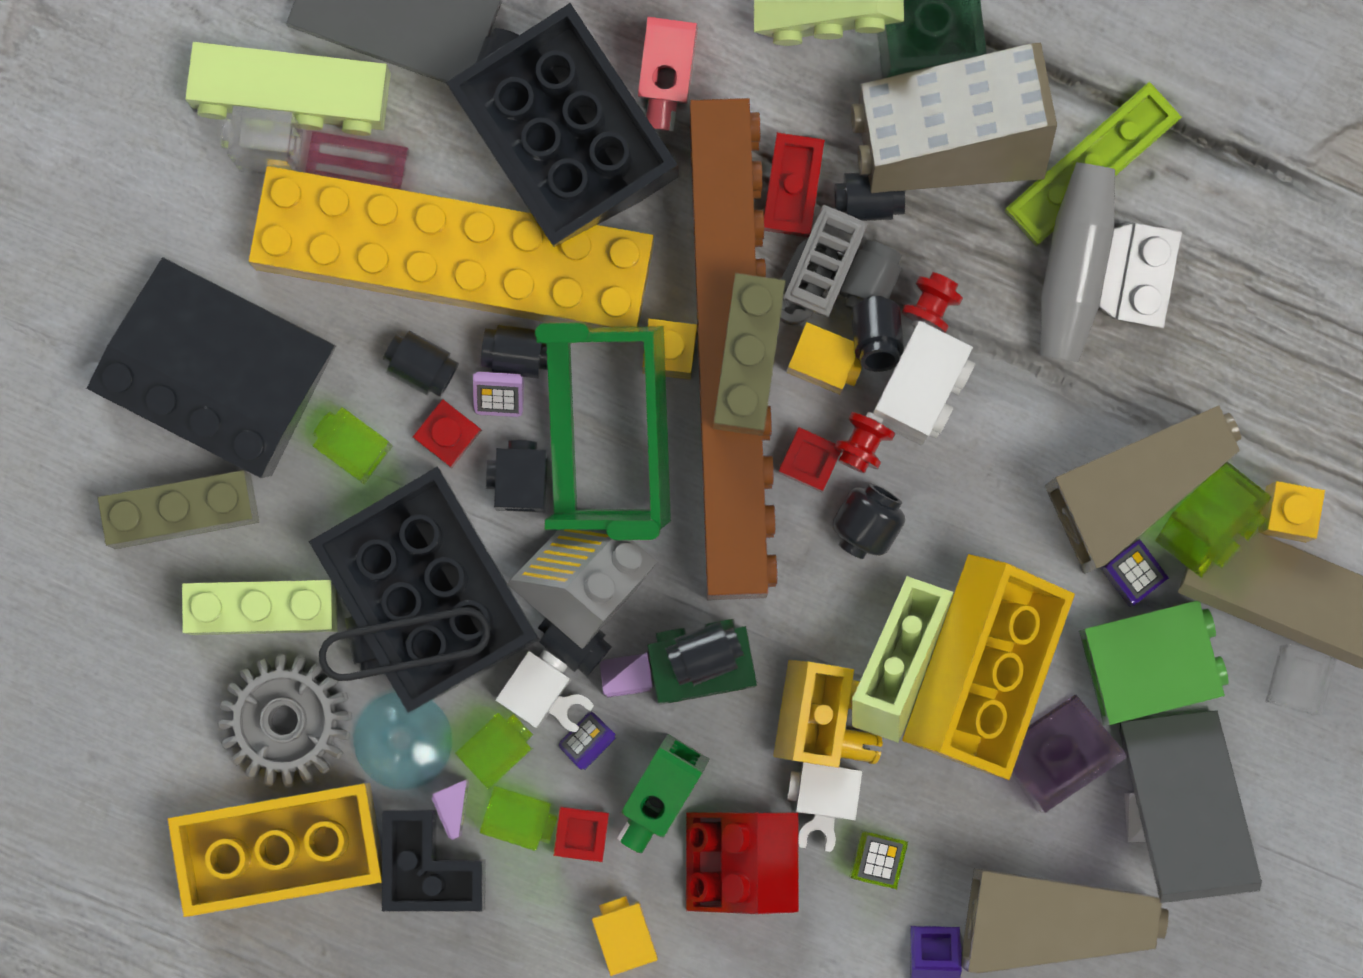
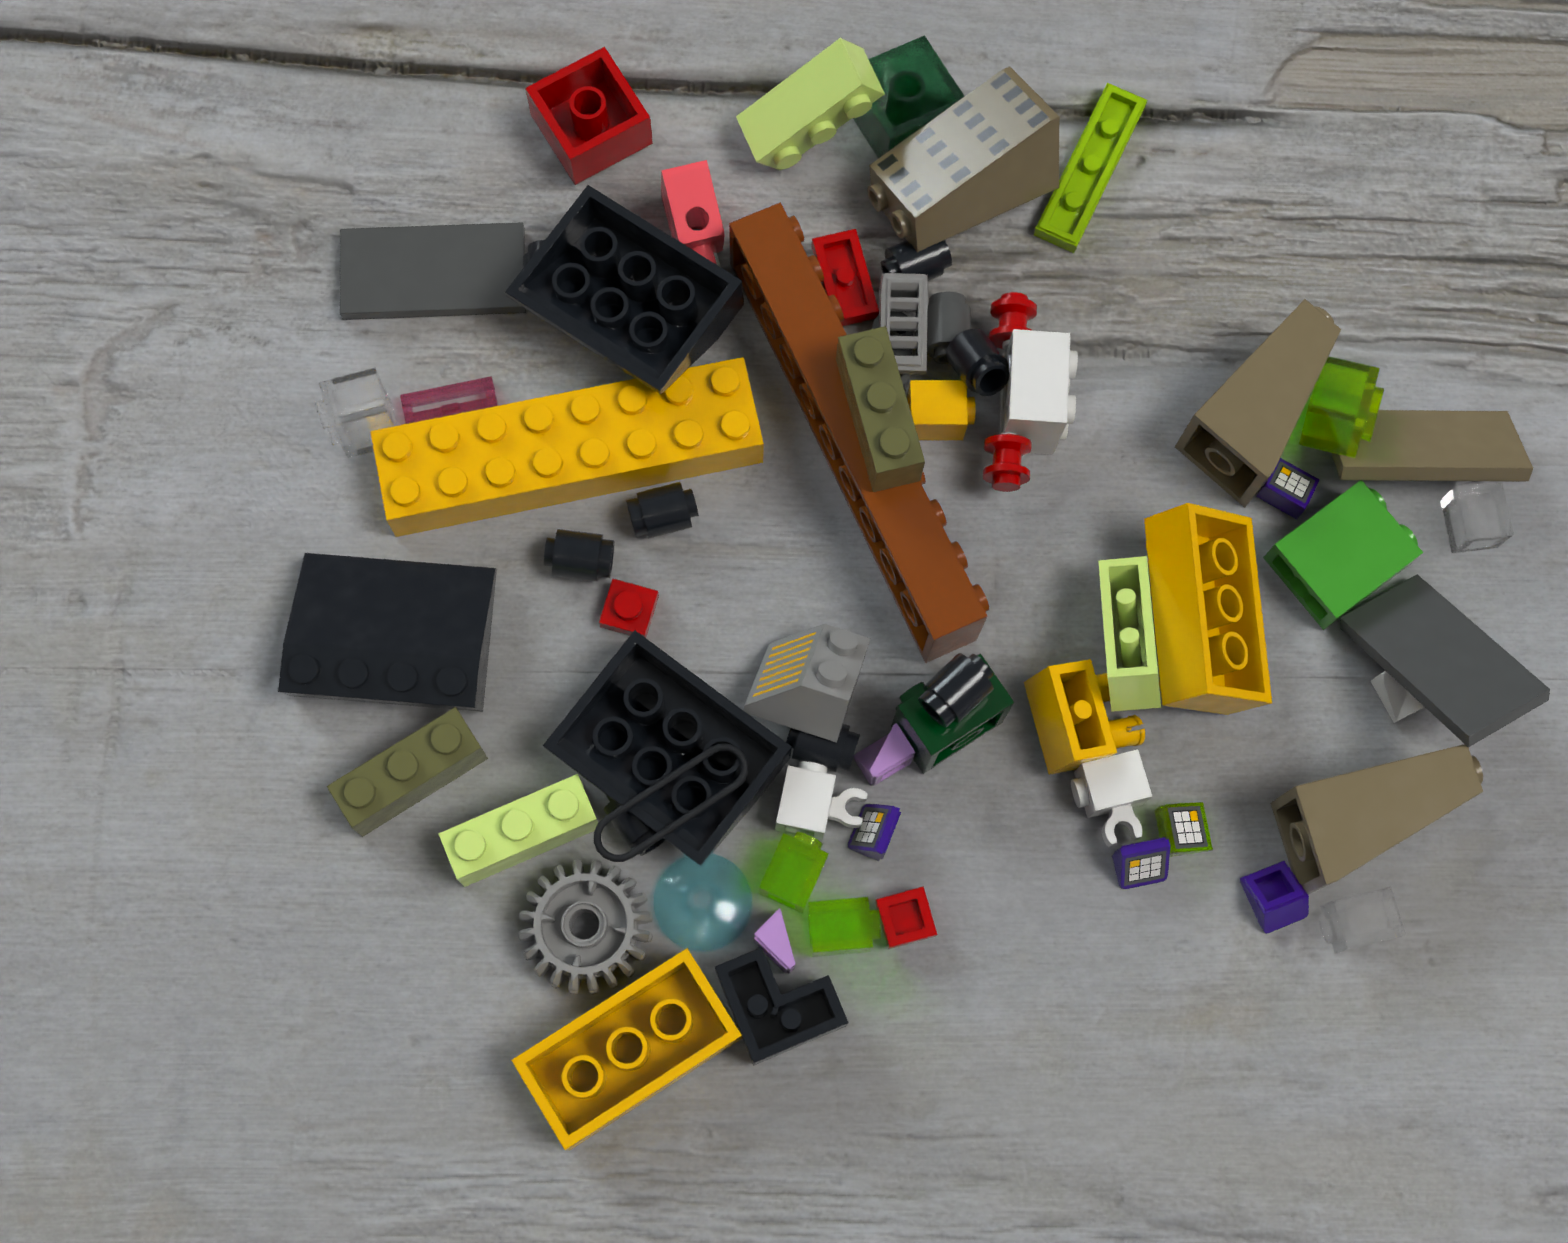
camera: 25 degrees left, 10 degrees down
(310, 86) = (402, 350): yellowish green brick -> none
(351, 444) = (545, 650): clear neon green brick -> none
(498, 394) = (661, 553): slope -> none
(518, 477) = (711, 619): black brick -> none
(618, 523) = (695, 471): green piece -> none
(624, 935) = (987, 995): yellow brick -> none
(669, 777) = (968, 824): green torso -> none
(679, 347) = (798, 453): yellow brick -> none
(742, 862) = (1064, 881): red slope -> none
(810, 460) = (965, 501): red plate -> none
(823, 875) = (1142, 863): none -> slope
(868, 521) = (1040, 532): black head -> none
(1064, 754) = (1308, 665): clear purple slope -> none
(1101, 266) = (1140, 241): light grey plate -> none
(1292, 512) = (1404, 376): yellow brick -> none

